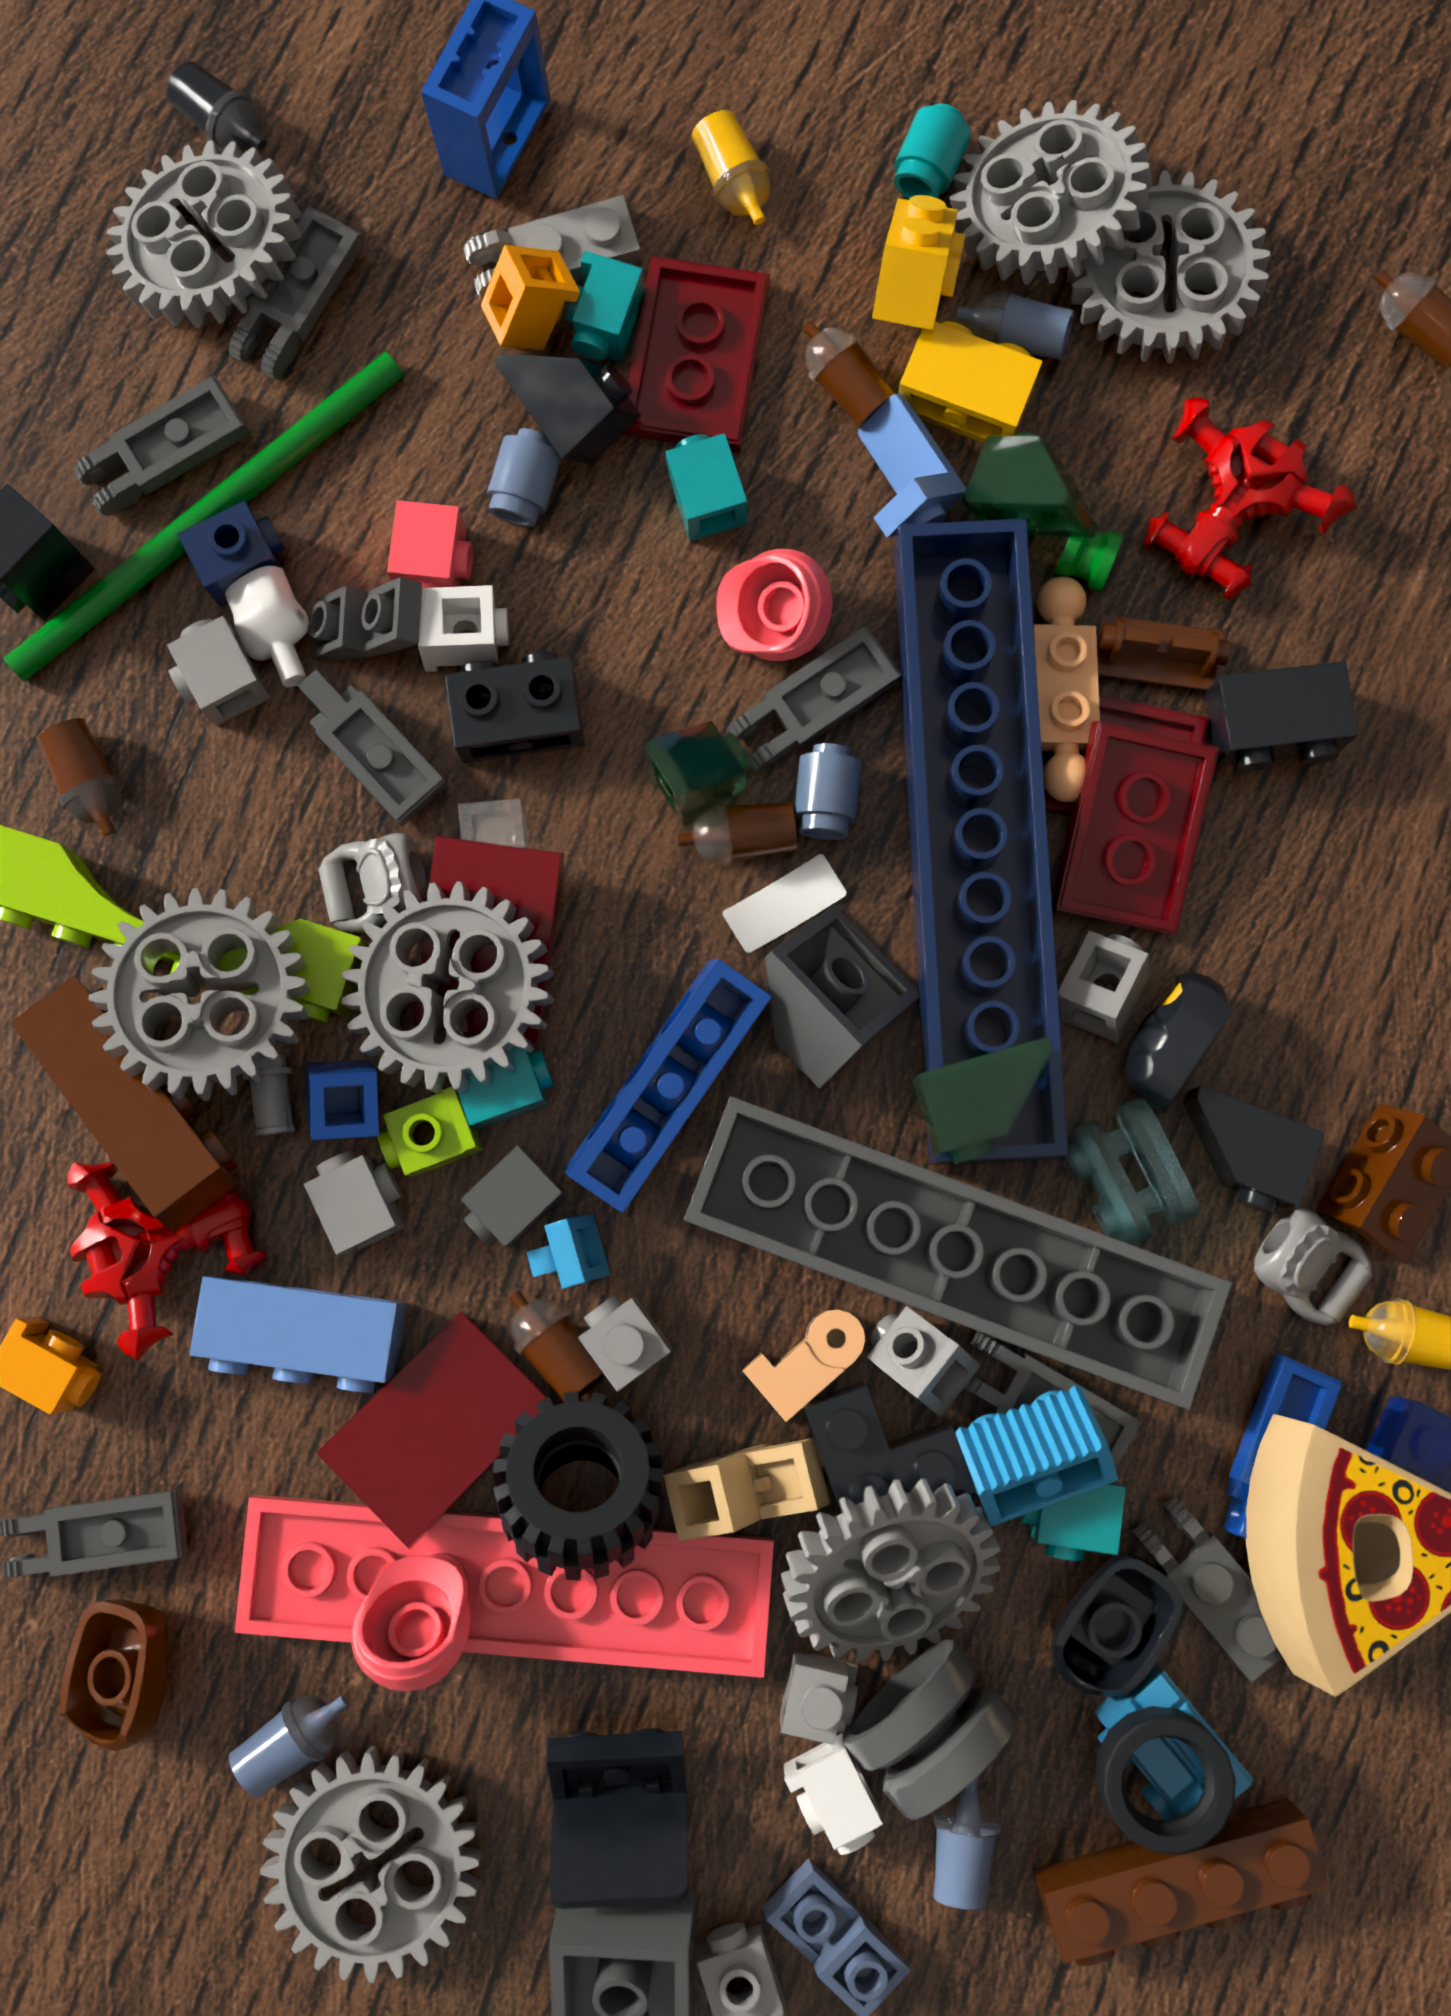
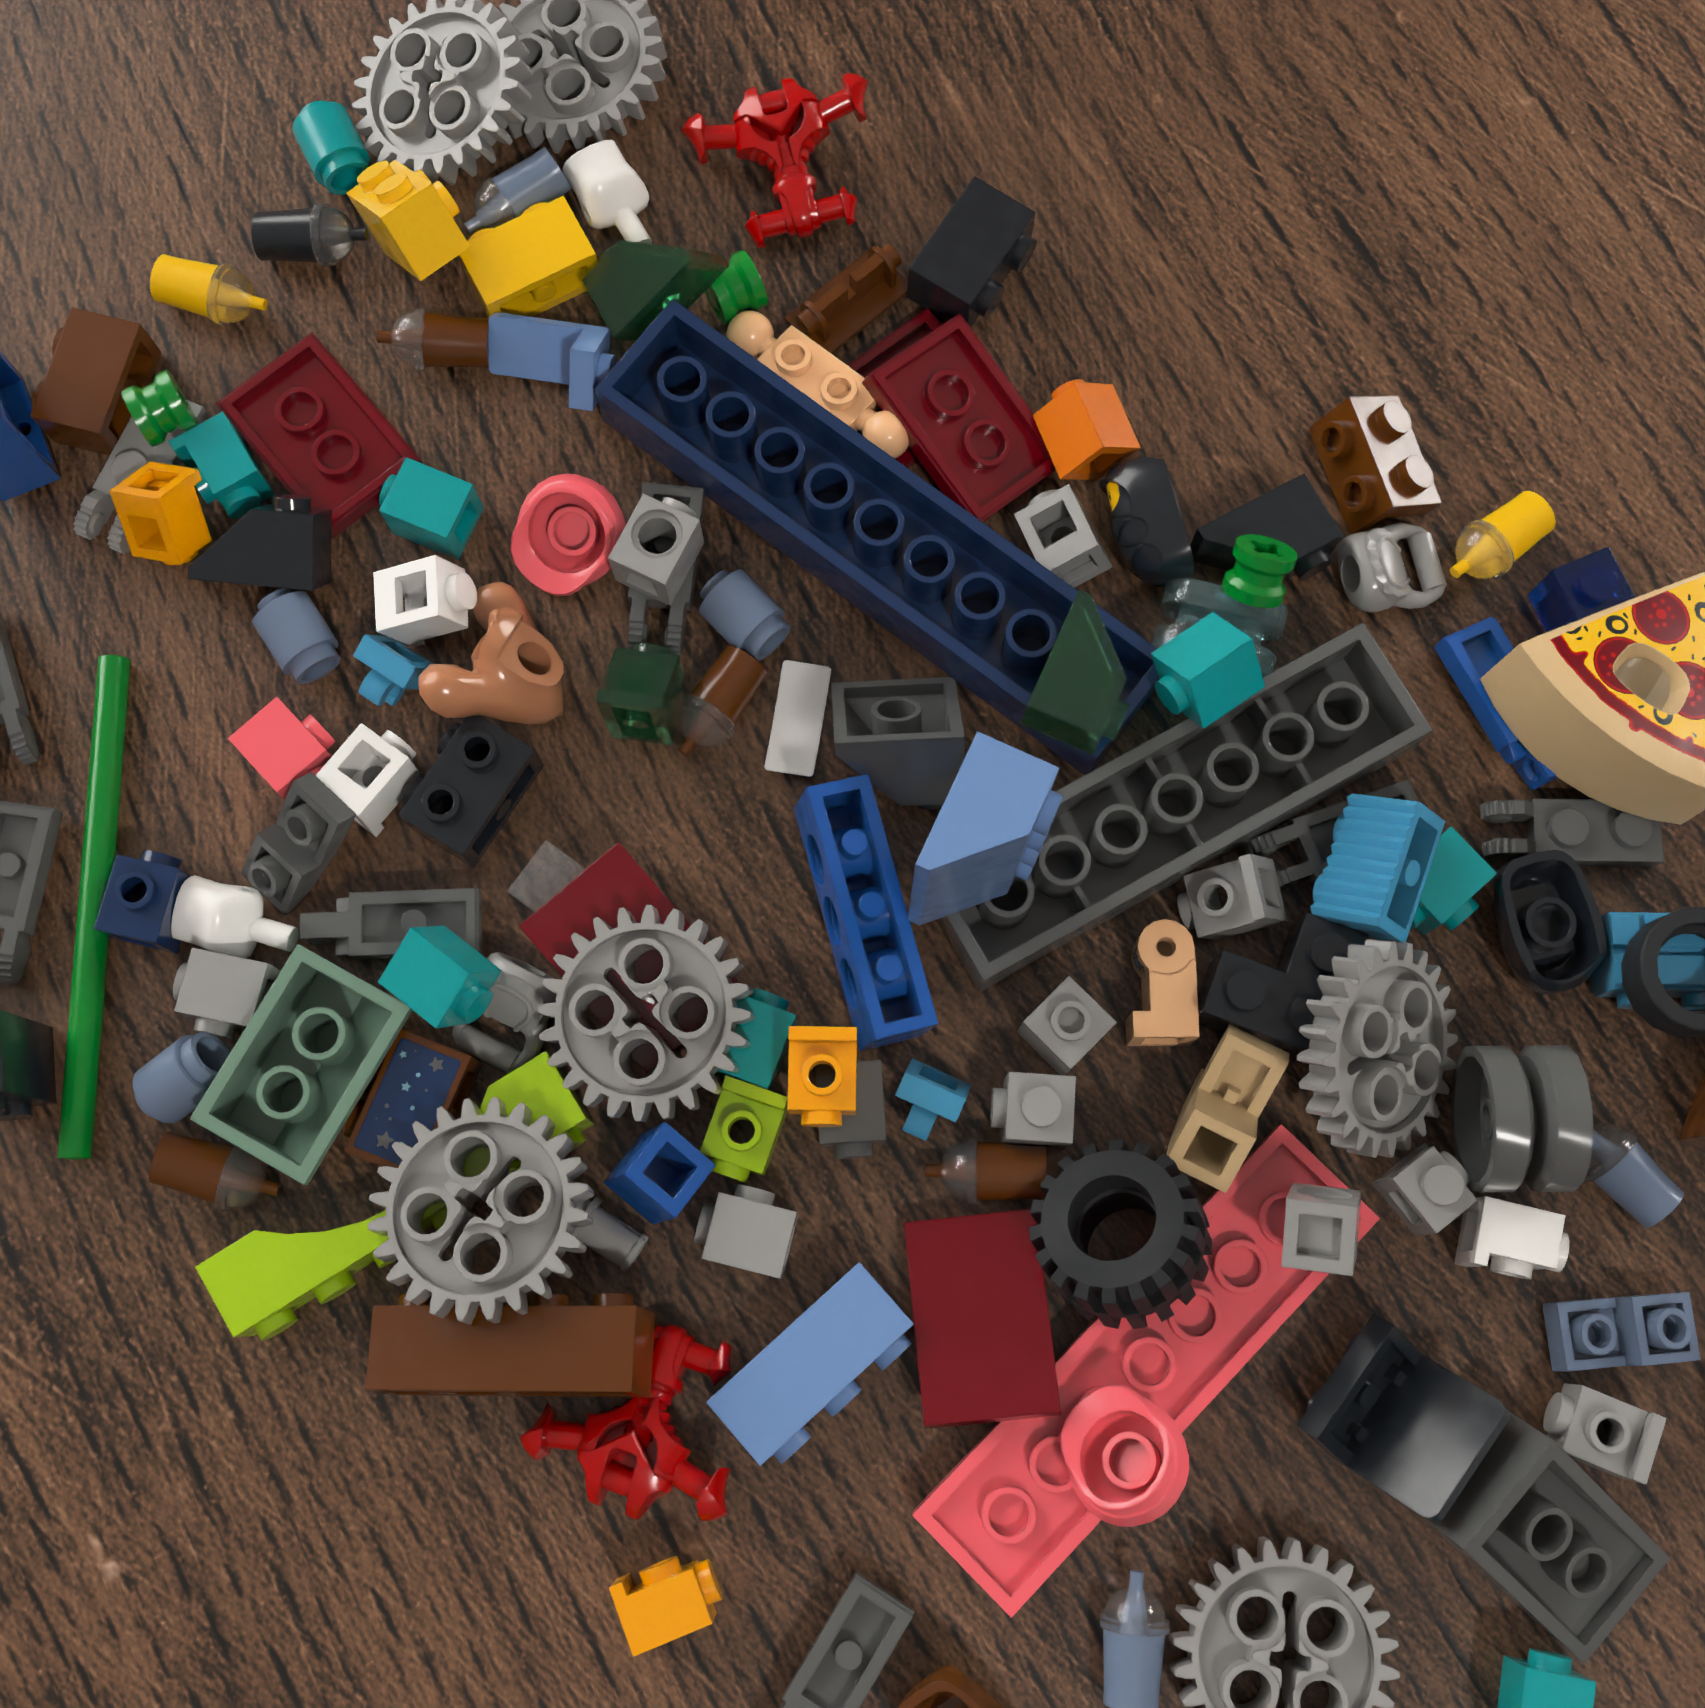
camera: 55 degrees left, 5 degrees down
(128, 693) = (179, 1076): none -> sand blue brick
(205, 770) = (301, 1064): none -> sand green slope
(262, 863) = (408, 1088): none -> dark blue brick
(348, 813) = (440, 977): none -> teal brick
(532, 1159) = (822, 1046): none -> light orange brick
(559, 570) = (393, 668): none -> dark azure tile
(589, 153) = (83, 385): none -> reddish brown brick
(602, 221) = (159, 408): none -> green wheel
(632, 656) = (513, 667): none -> nougat head
(637, 555) = (434, 596): none -> white brick
(706, 1639) = (1321, 1229): none -> light grey brick
(709, 1312) = (1065, 1026): none -> light grey brick
(767, 1124) = (984, 830): none -> medium blue slope
(803, 707) = (661, 573): none -> light grey brick
(841, 198) = (305, 235): none -> piece
(1077, 1190) = (1207, 670): none -> teal brick
(1085, 391) = (608, 190): none -> white piece
(1204, 1164) = (1259, 571): none -> green wheel
(1211, 928) = (1085, 429): none -> orange brick

